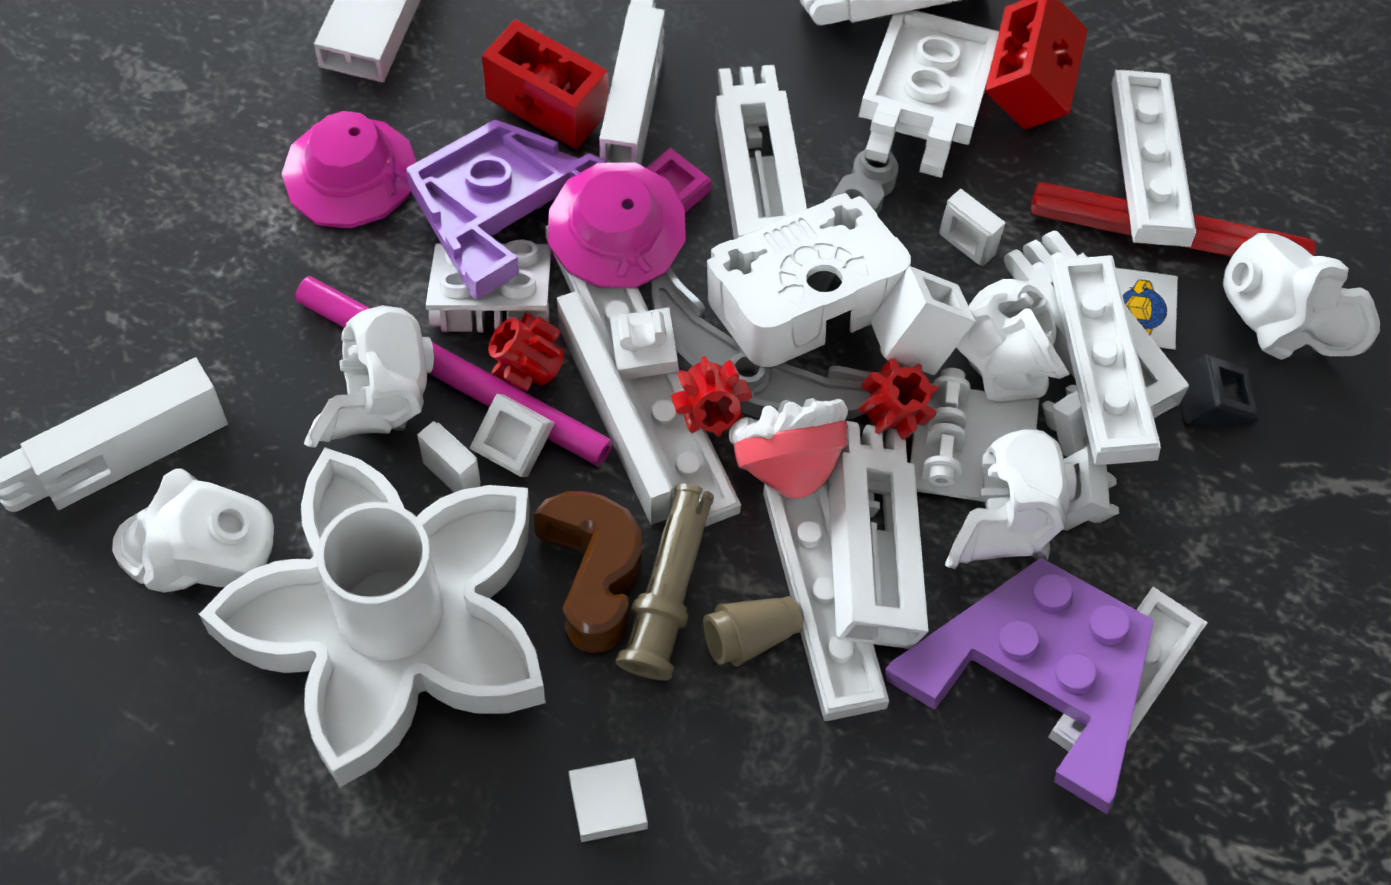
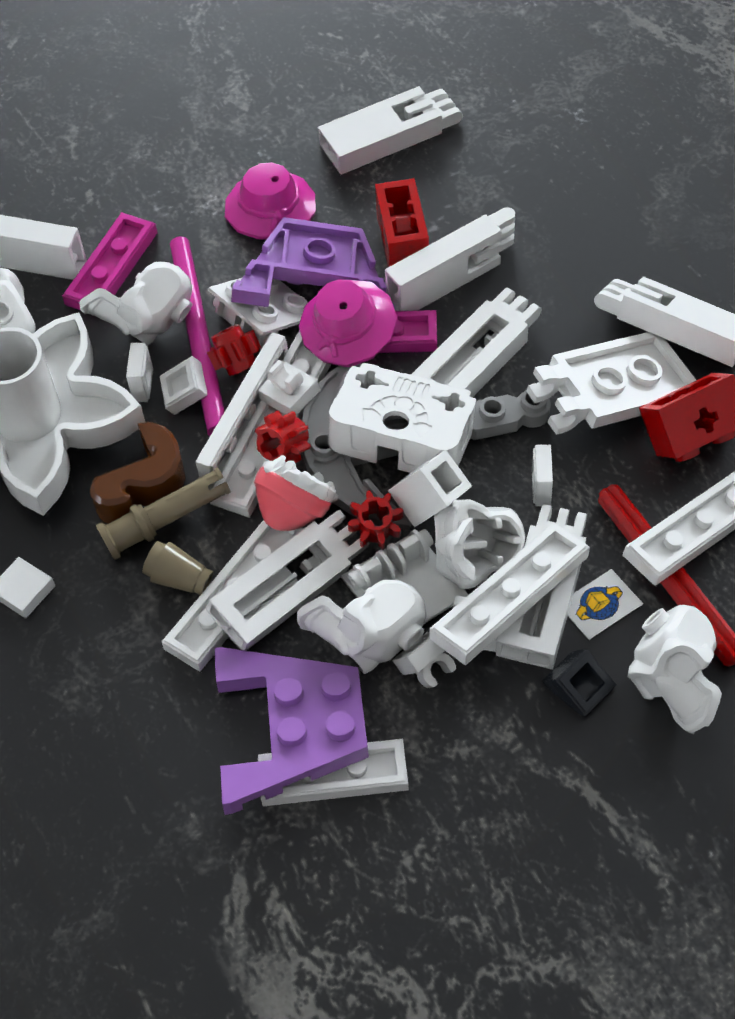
camera: 55 degrees right, 5 degrees down
(249, 375) = (112, 258): none -> dark pink tile

